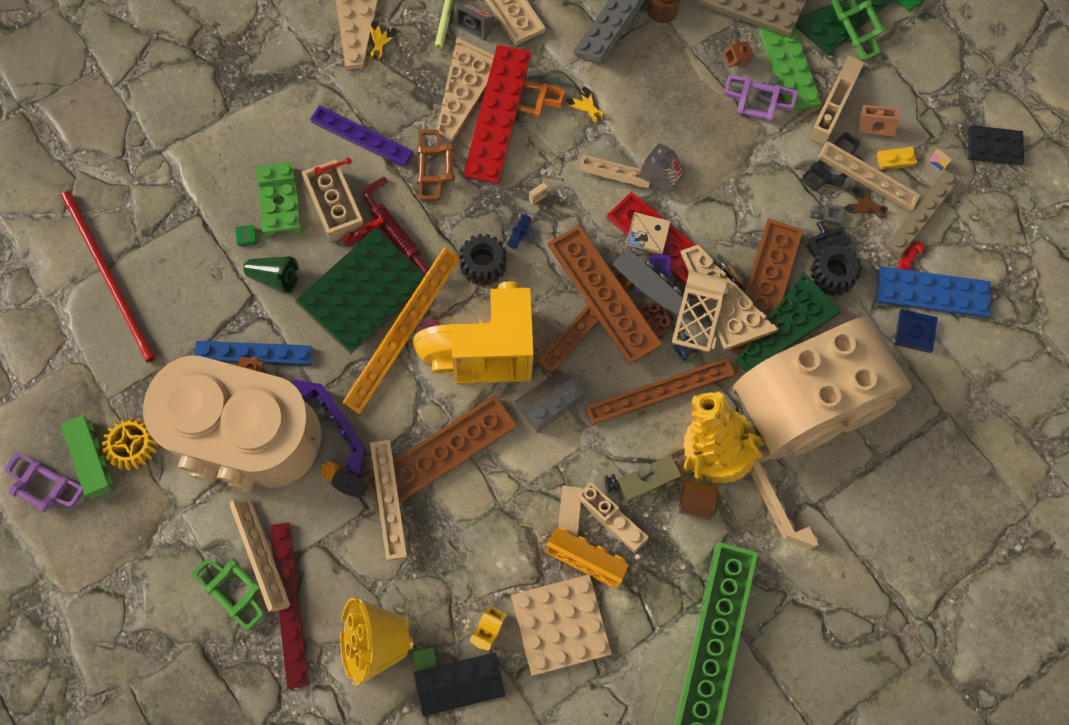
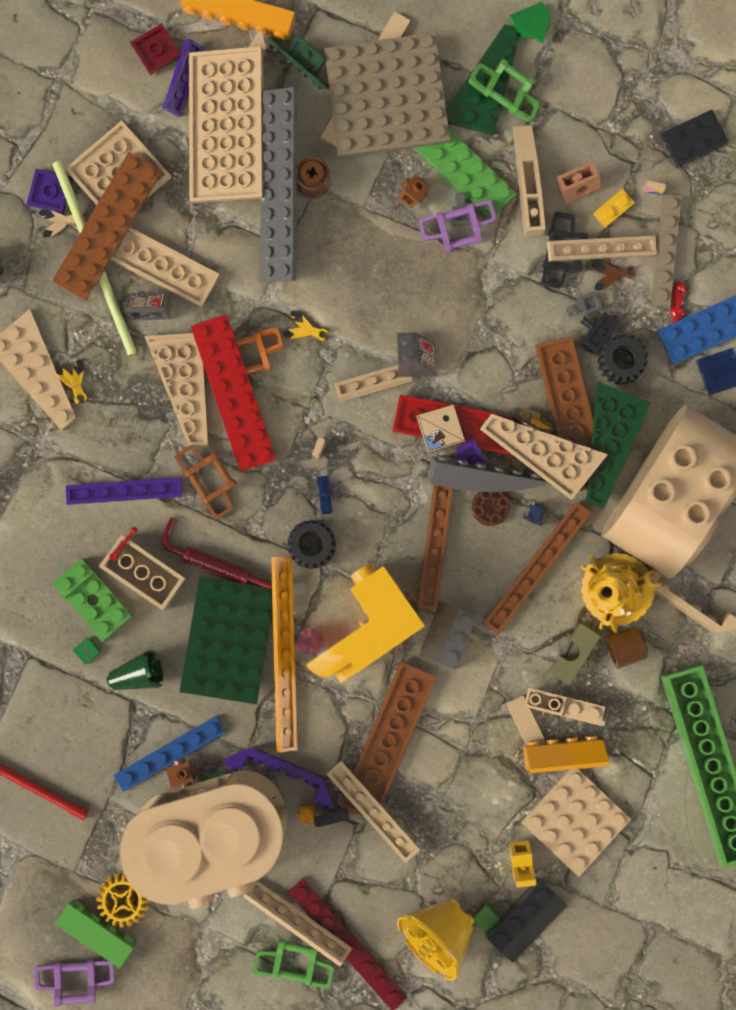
camera: 30 degrees left, 15 degrees up
(358, 235) = (187, 587): red animal -> none
(604, 295) = (437, 512): dark orange plate -> none
(611, 483) = (544, 676): black bush -> none
(701, 286) = (524, 454): tan piece -> none

